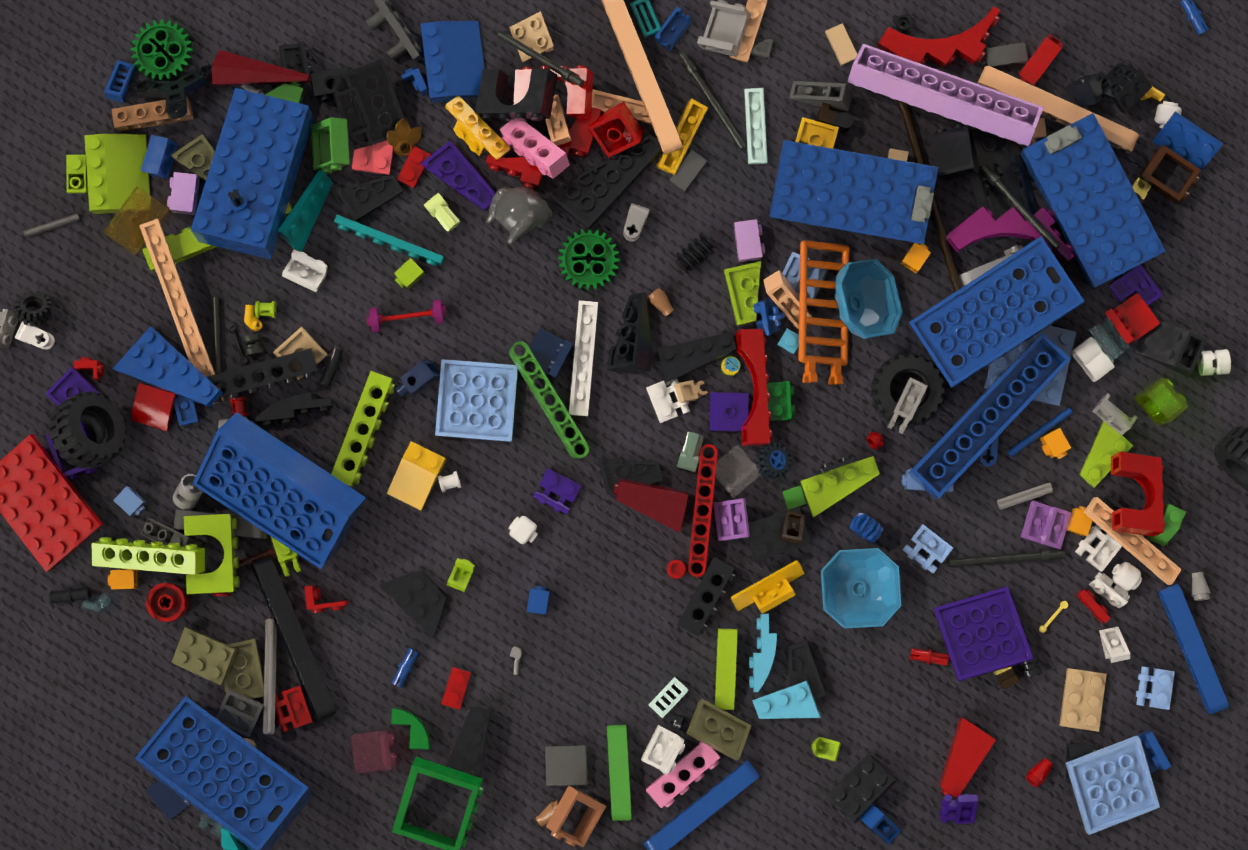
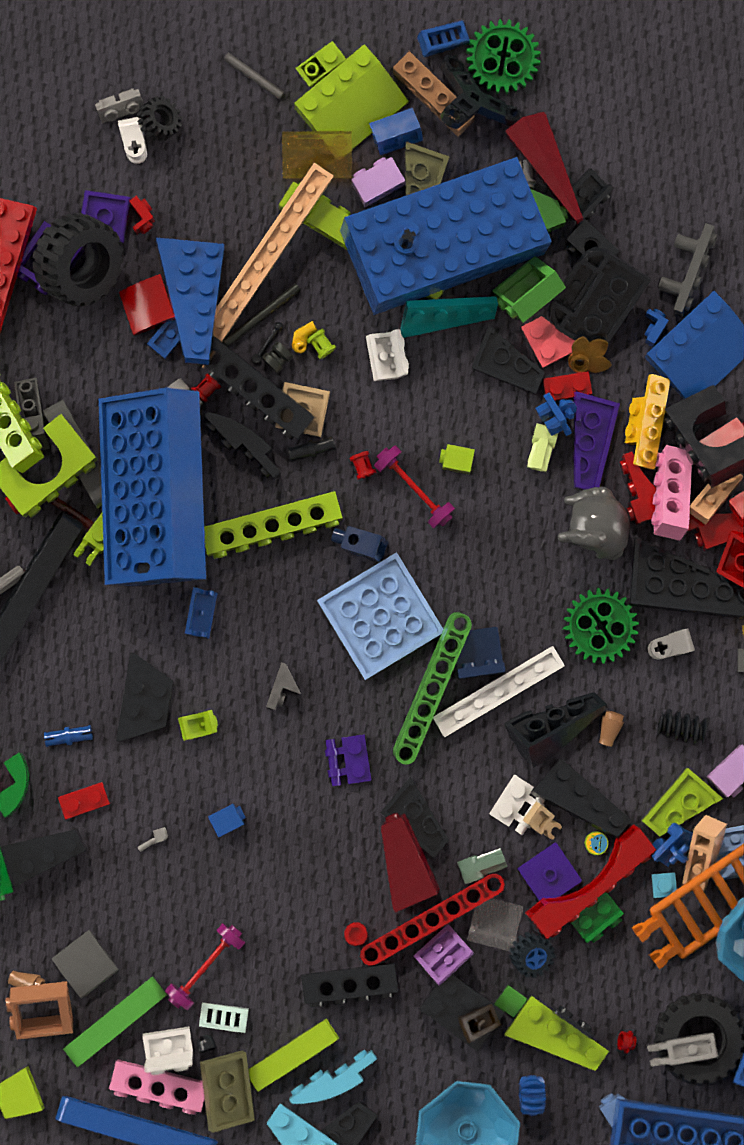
camera: 55 degrees right, 0 degrees up
(130, 502) = (38, 350): medium blue brick -> none
(186, 493) = (85, 399): light grey wheel -> none
(313, 595) = (74, 596): red bracket -> none
(367, 340) = (362, 465): none -> red bush
(387, 519) = (201, 613): none -> blue hinge
(396, 244) = (478, 425): teal plate -> none
(416, 475) = (264, 610): yellow slope -> none
(428, 183) = (558, 423): none -> blue hips
(449, 481) = (281, 647): white bush -> none
(473, 496) = (283, 680): none -> flat silver slope
(523, 530) = (286, 754): white head -> none
(633, 716) = (179, 996): none -> magenta axle
(770, 590) = (401, 1043): yellow bracket -> none

